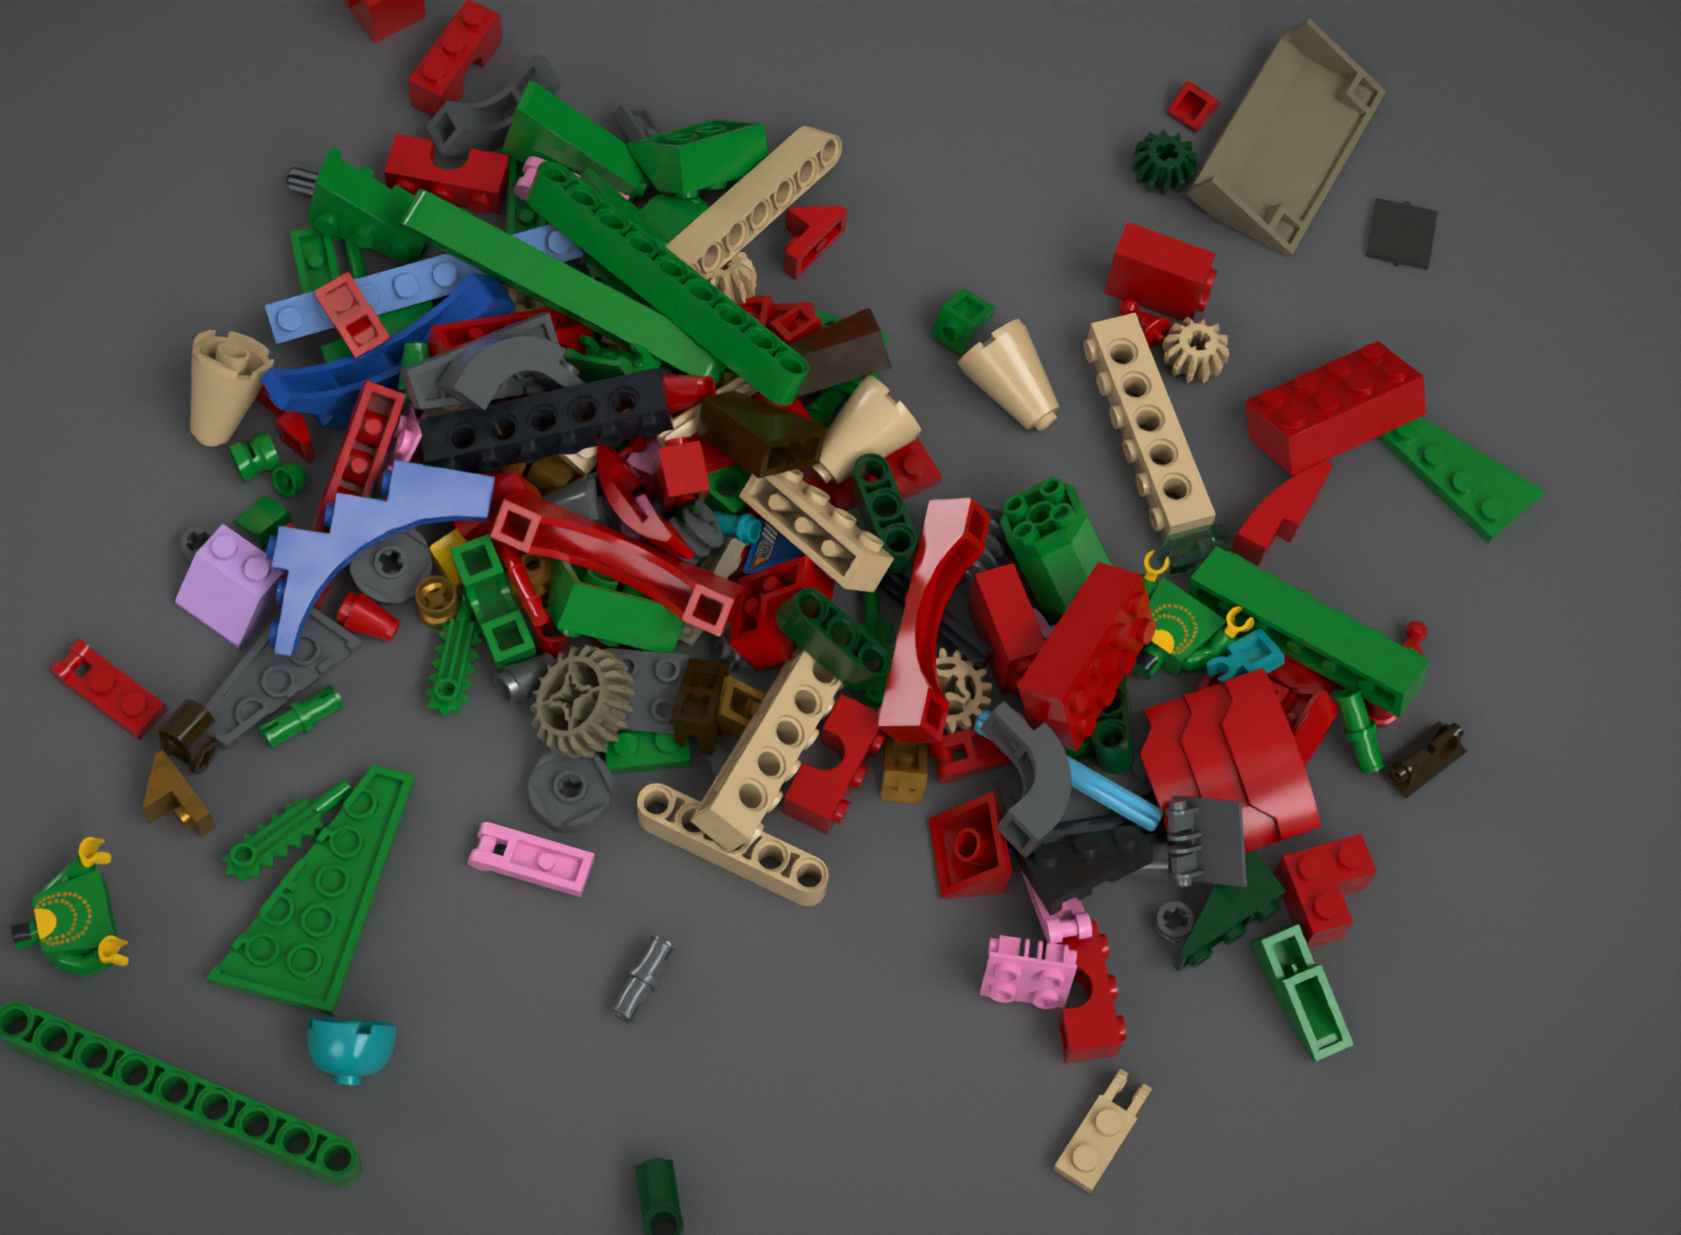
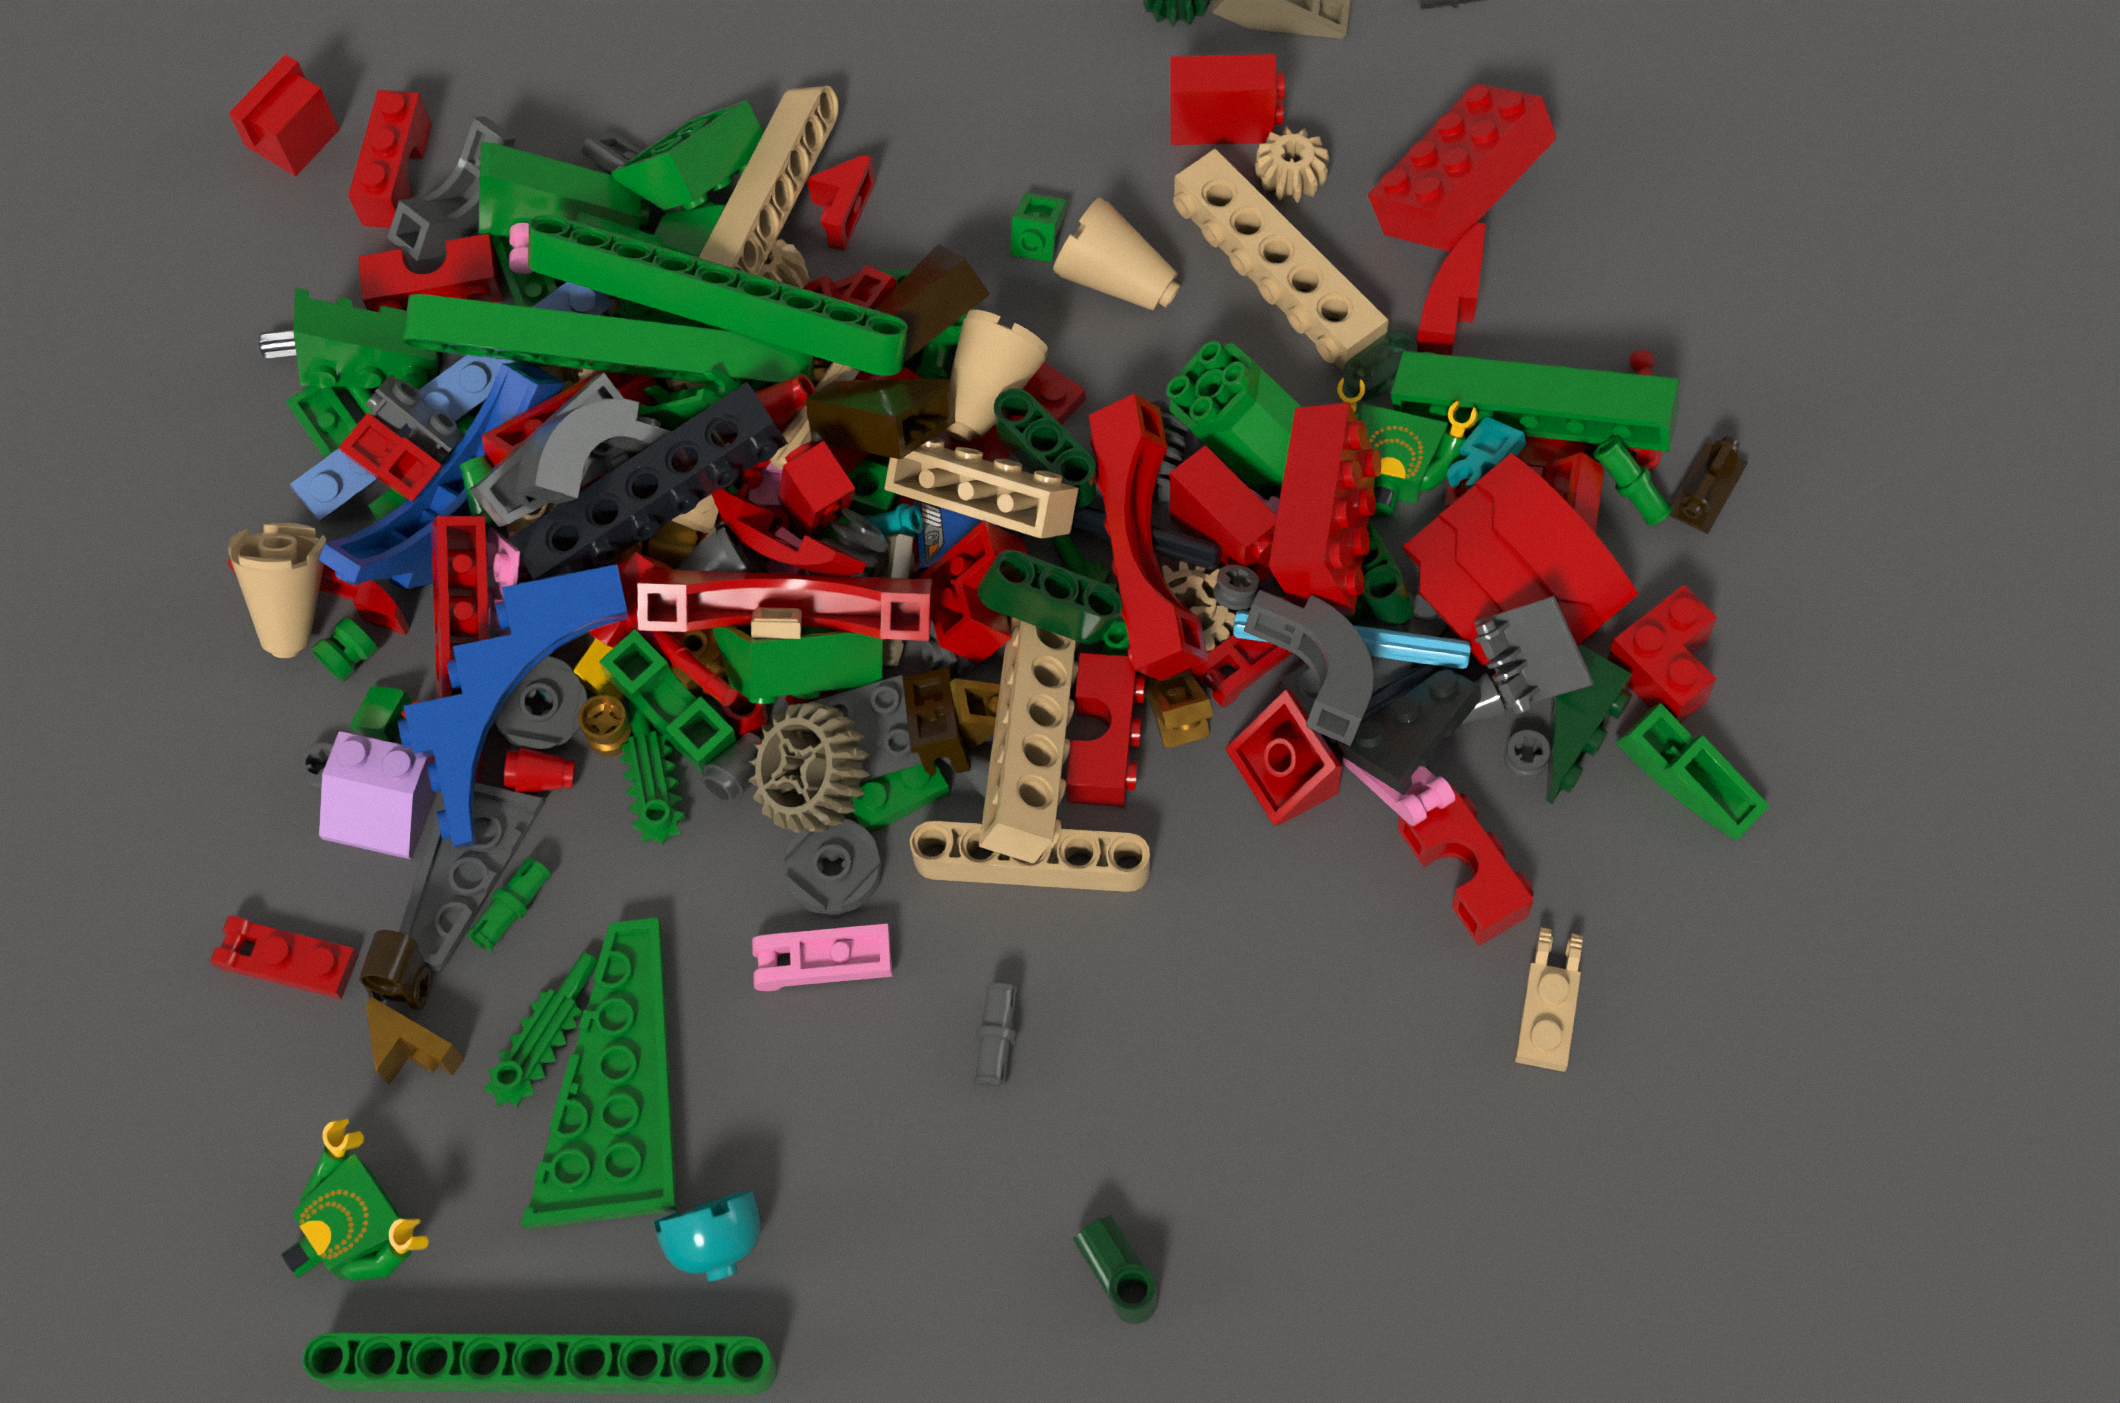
camera: 10 degrees left, 0 degrees up
(289, 473) = (387, 653): green hinge -> none
(377, 274) = (400, 404): none -> dark grey hinge
(603, 574) = (776, 623): none -> tan tile
(993, 680) = (1236, 587): none -> dark grey bush
(1025, 978) = (1404, 871): bright pink hinge -> none
(1153, 327) = (1239, 156): red piece -> none
(1462, 477) = (1620, 190): green wing -> none

